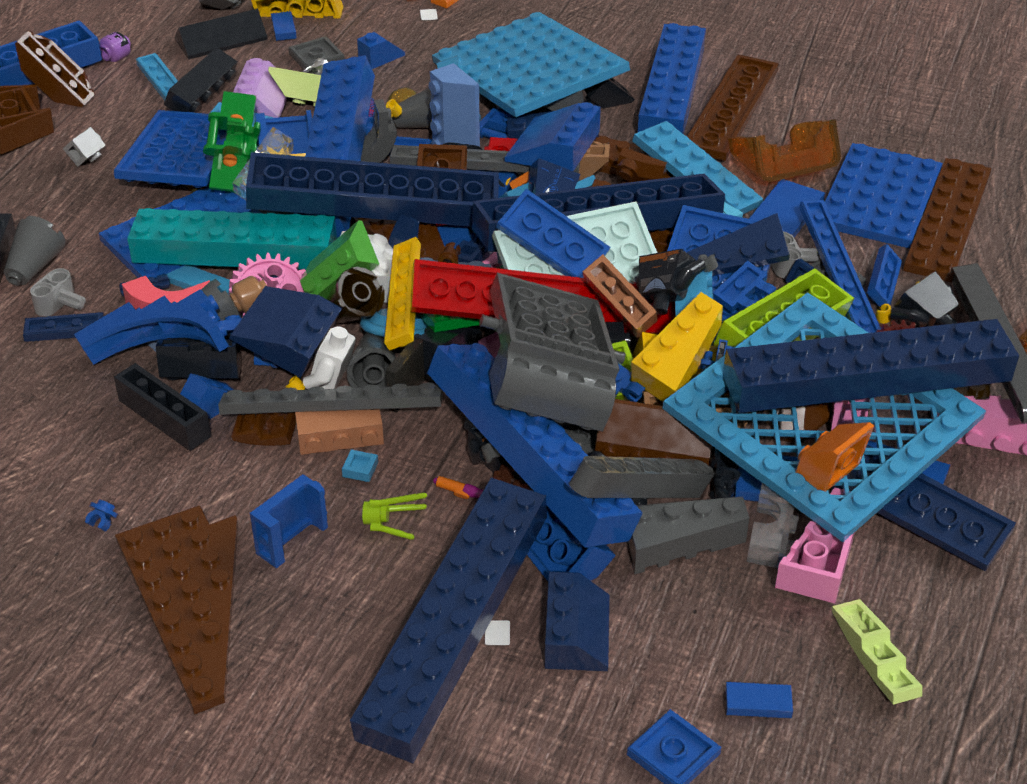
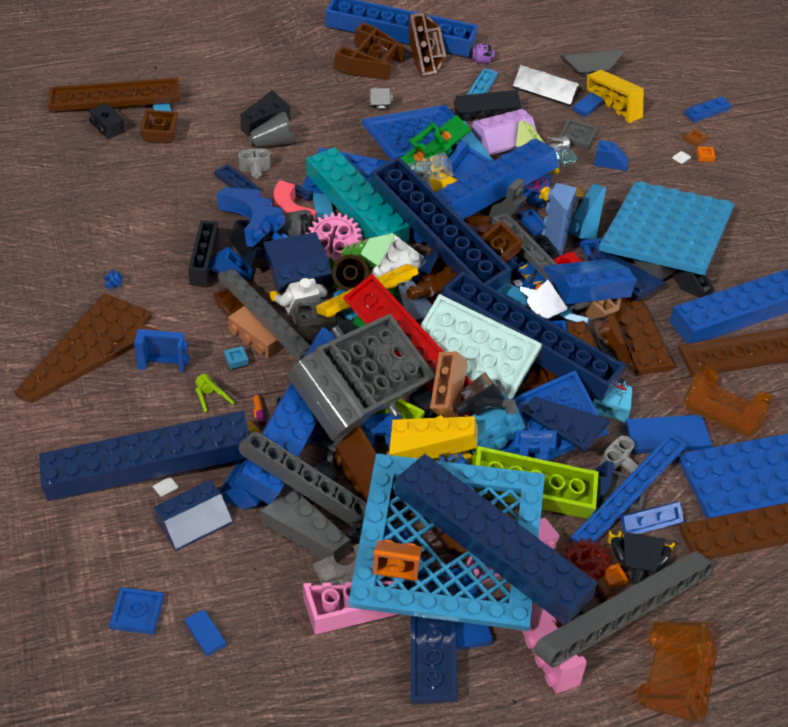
camera: 50 degrees right, 5 degrees up
(246, 292) = (311, 226): medium nougat head -> none
(551, 235) = (466, 322): blue tile -> none
(687, 158) = (655, 366): dark azure plate -> none
(875, 651) = (288, 673): yellowish green slope -> none

